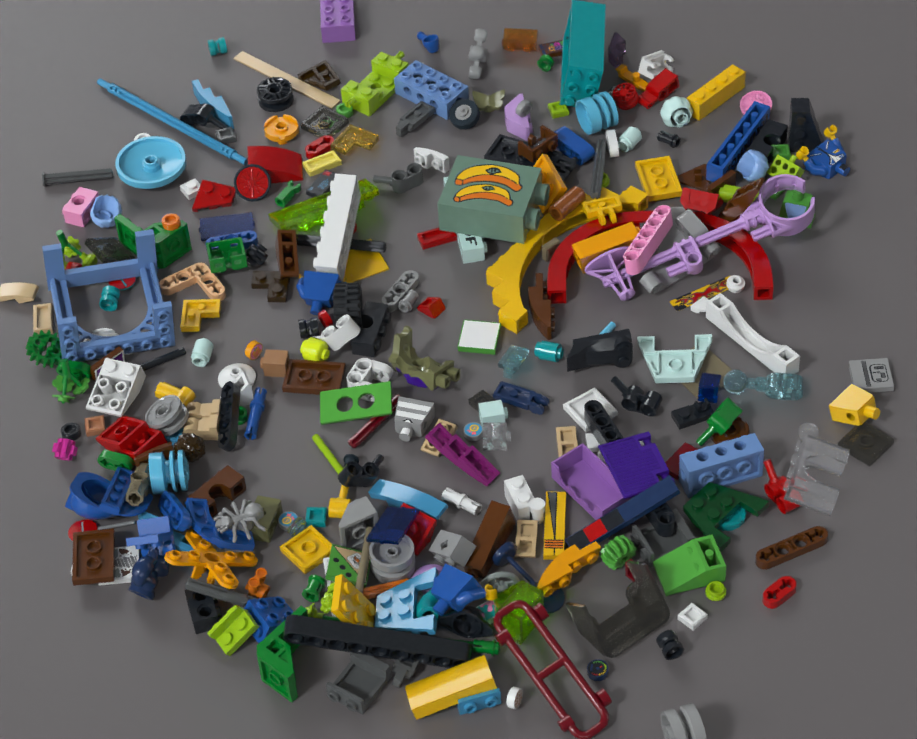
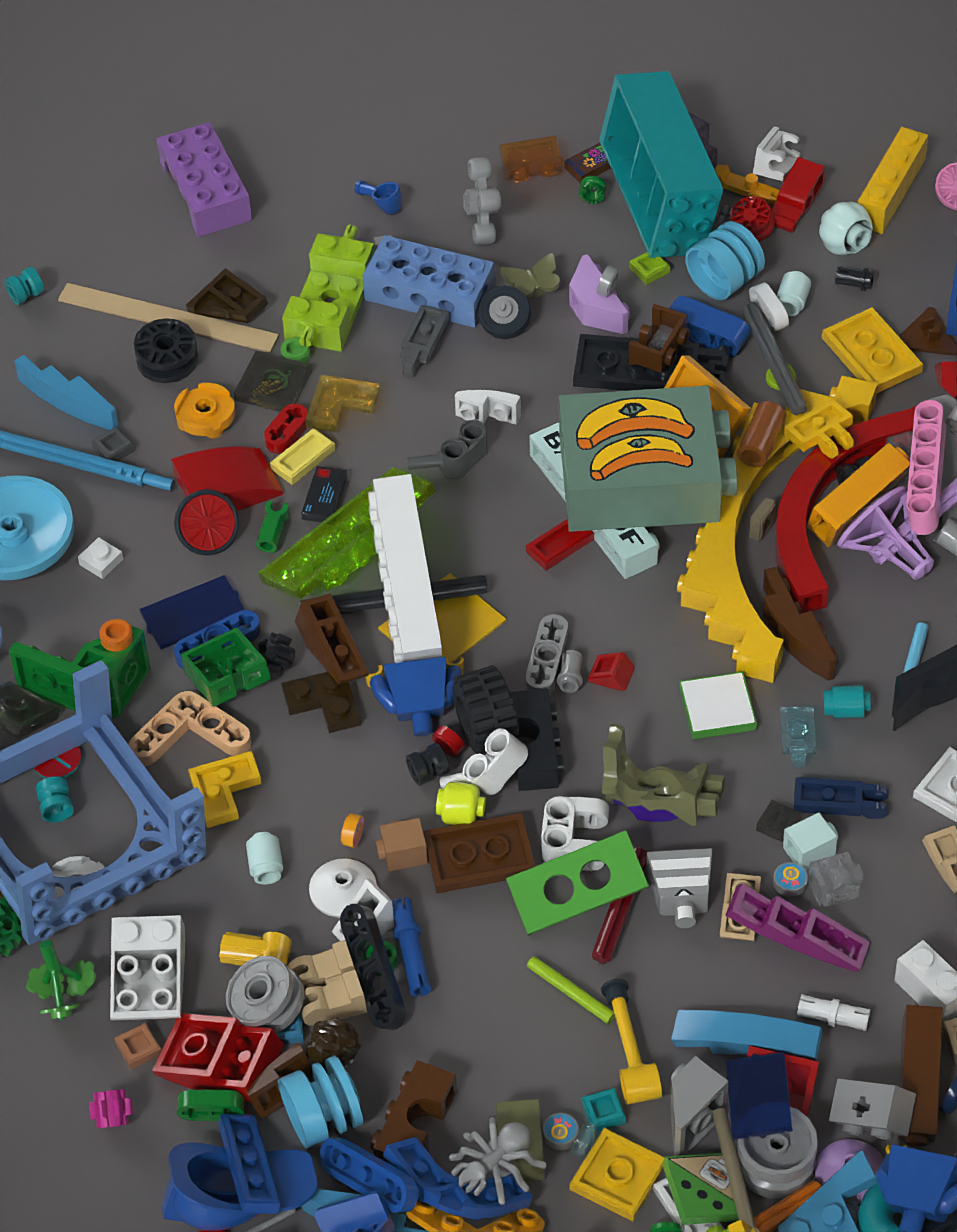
camera: 20 degrees left, 5 degrees up
(71, 431) = (100, 1069): black tile -> none
(78, 369) = (68, 948): green beam -> none
(116, 354) = (100, 938): reddish brown tile -> none
(139, 485) = (281, 1140): dark tan piece -> none
(162, 359) = (198, 888): black bar -> none
(201, 115) = (57, 417): black beam -> none
(213, 195) = (147, 561): red wing -> none
(360, 476) = (651, 1013): black beam -> none

